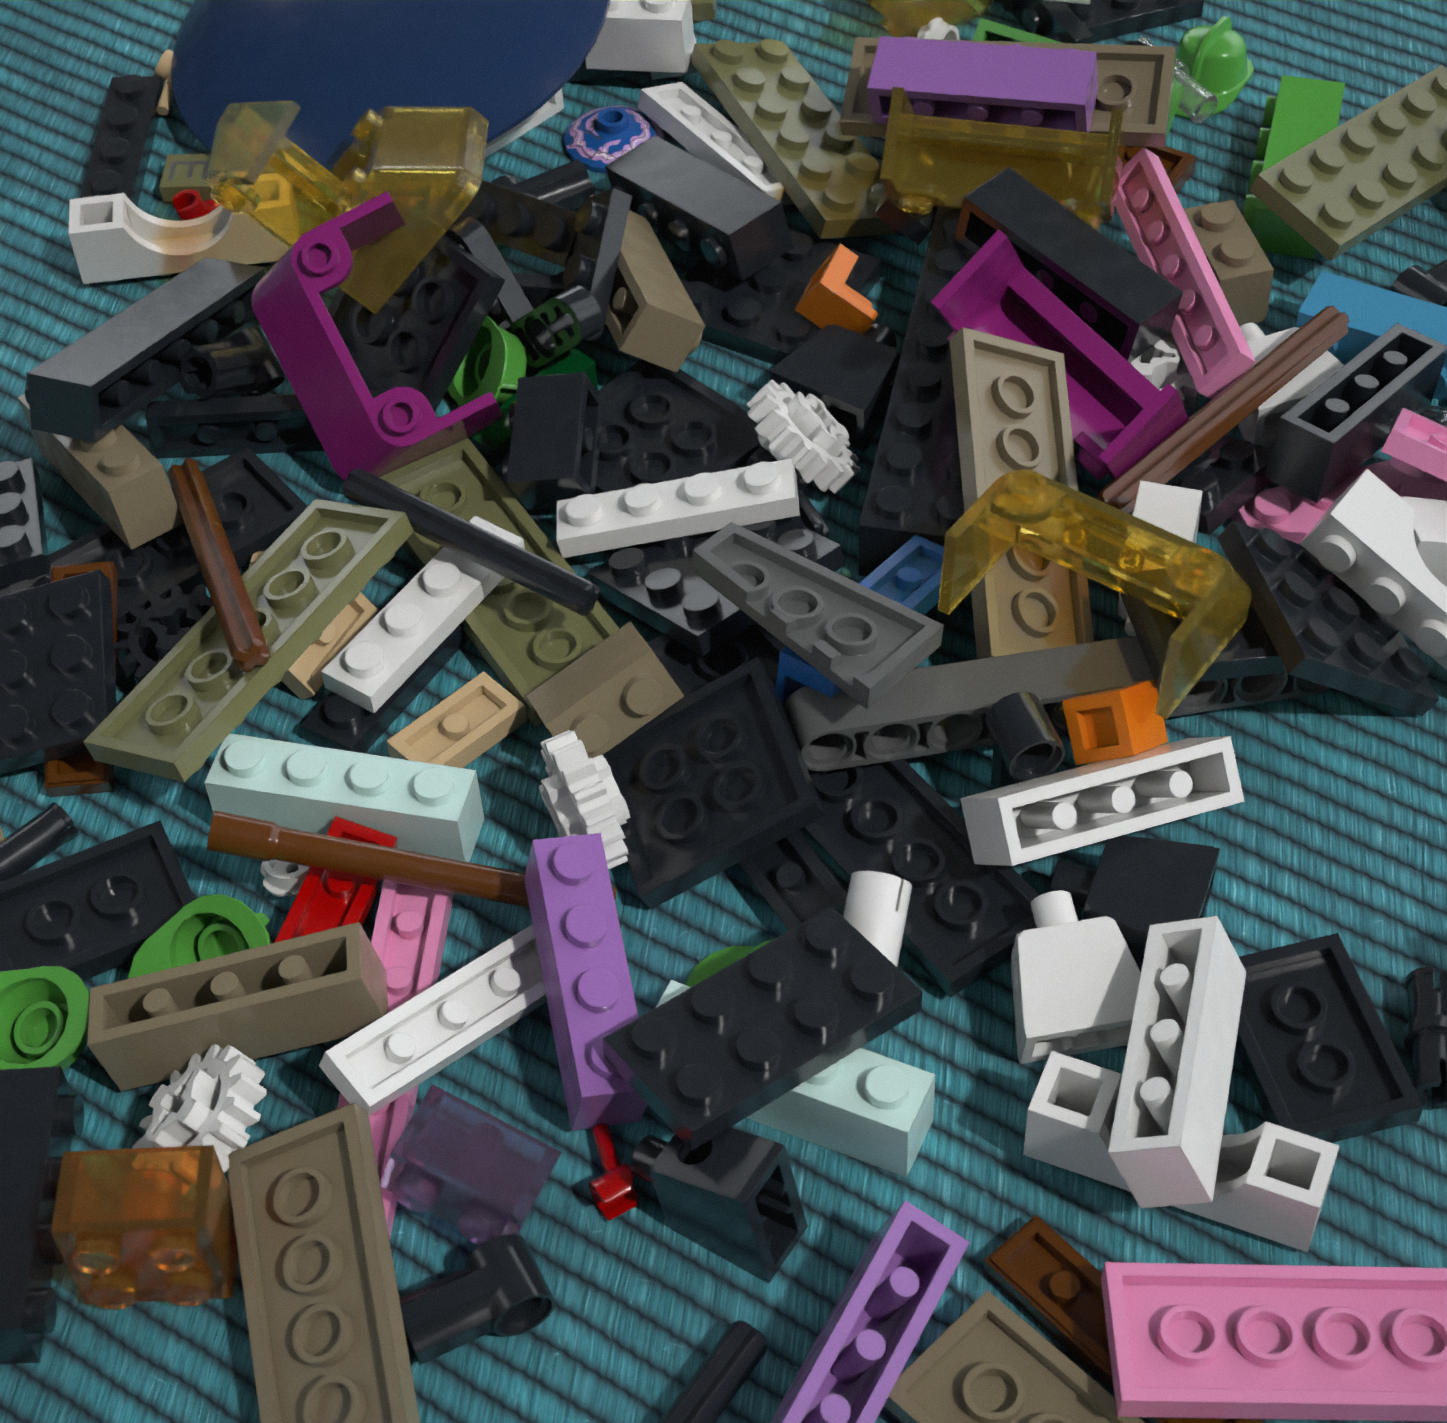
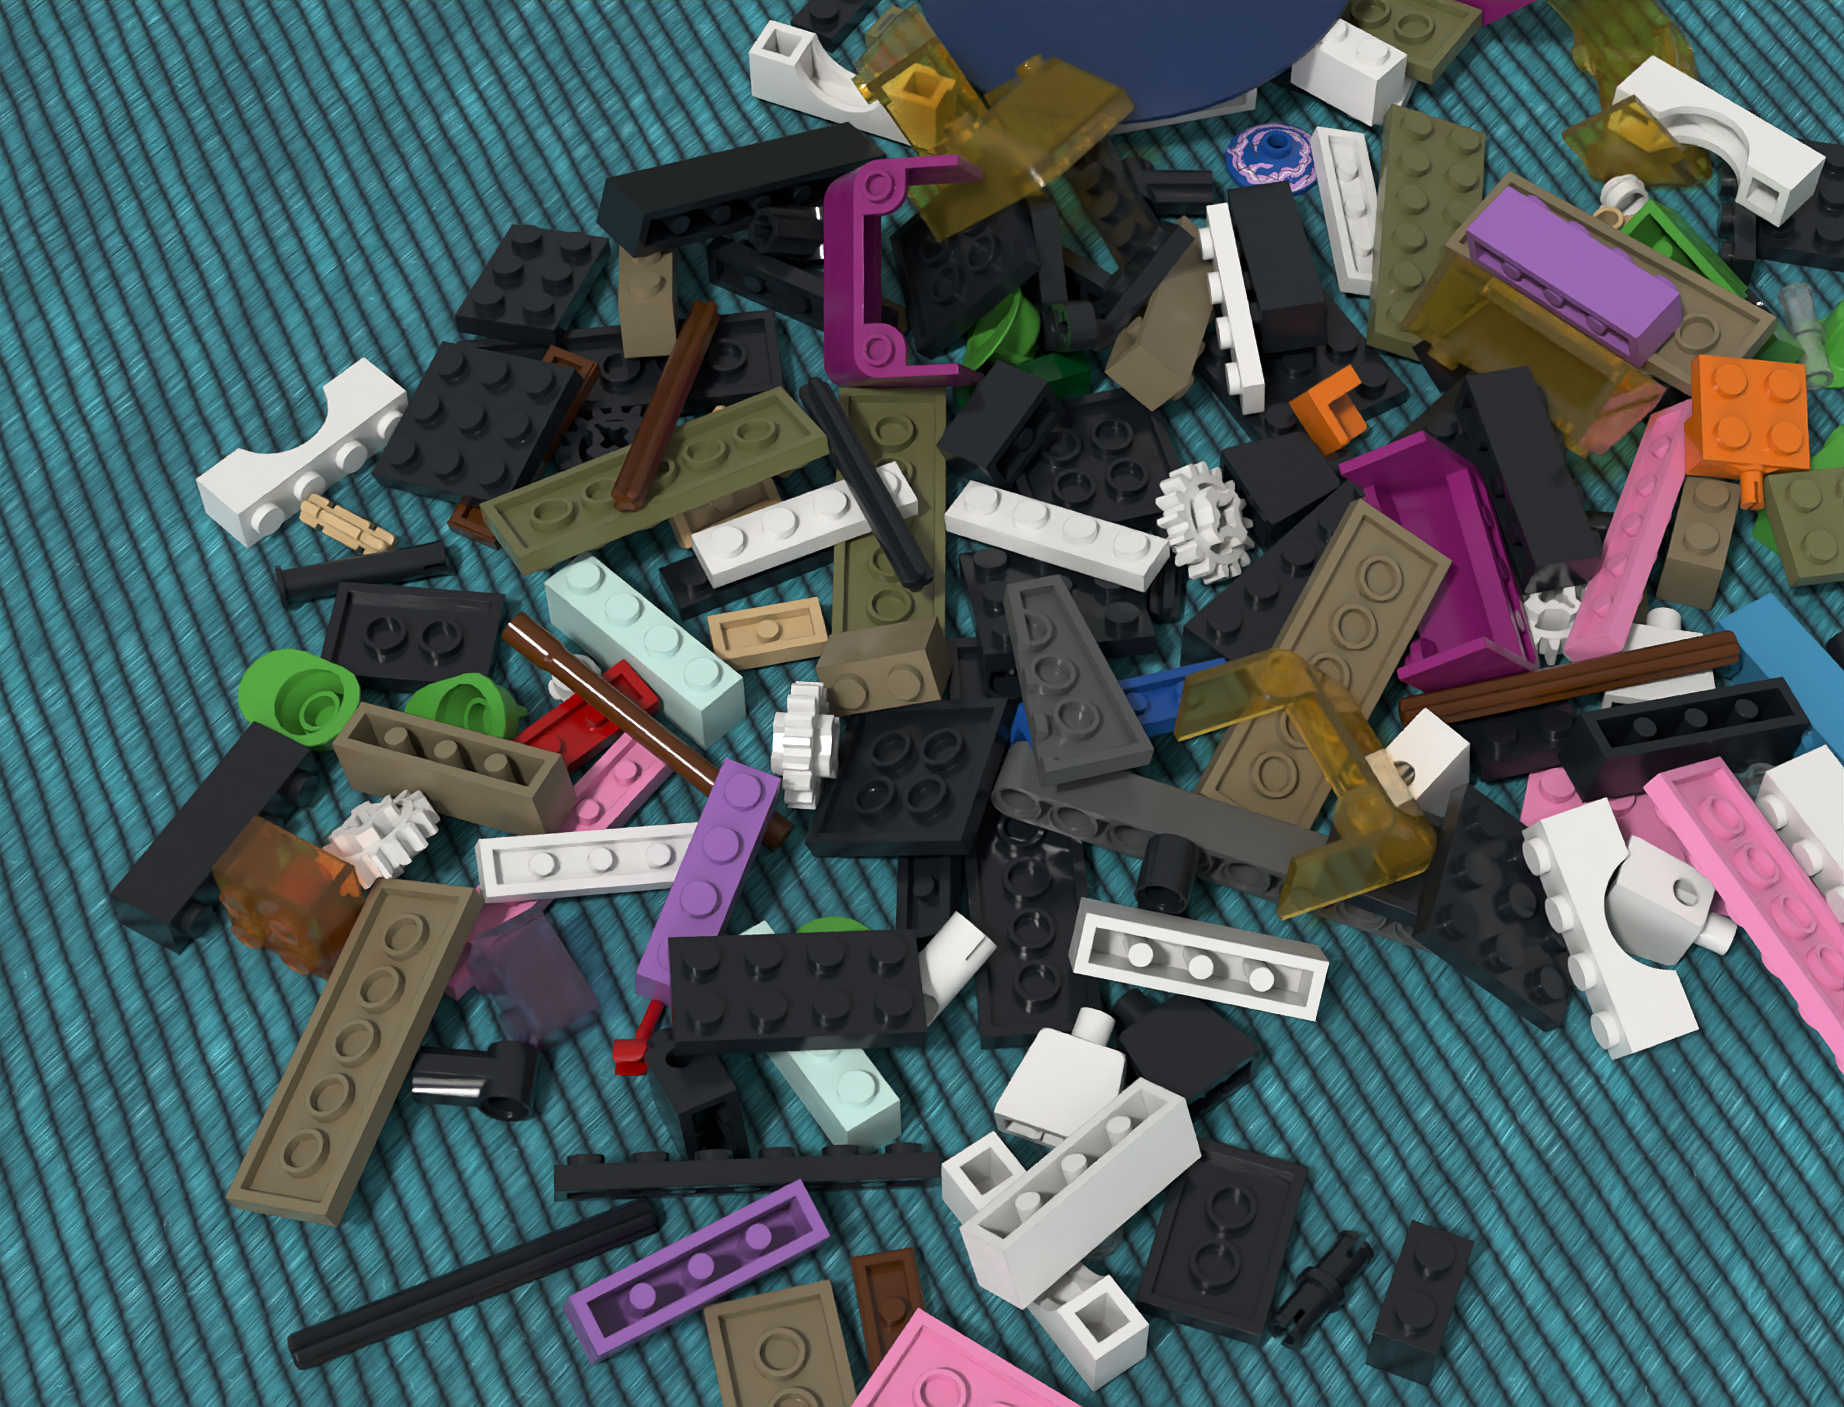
camera: 30 degrees right, 5 degrees up
(702, 255) = (1235, 327): none -> white plate
(804, 1248) = (718, 1174): none -> black plate
(1114, 723) = (1248, 903): orange panel -> none
(1209, 142) = (1746, 422): none -> orange plate

